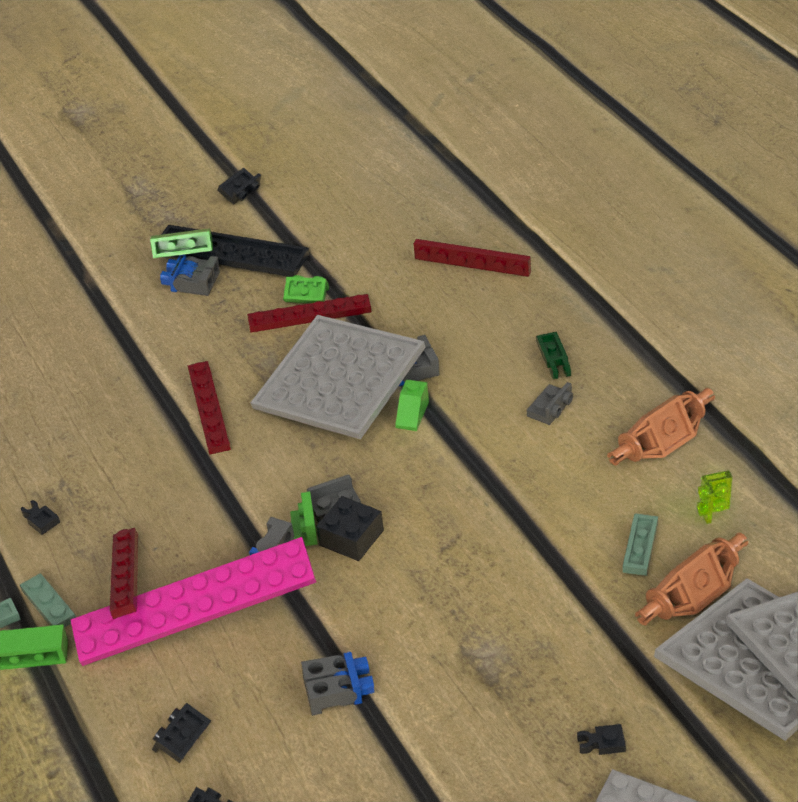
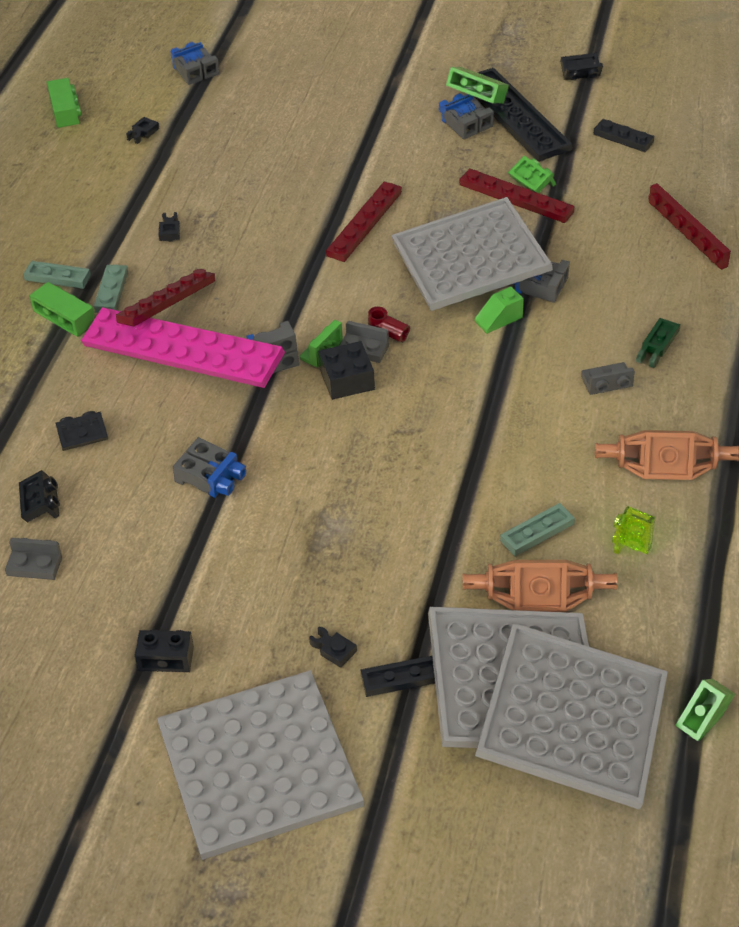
camera: 40 degrees right, 5 degrees up
(327, 470) = (379, 318): none -> dark red piece
(336, 220) = (624, 135): none -> black plate
(681, 719) = (398, 676): none -> black plate

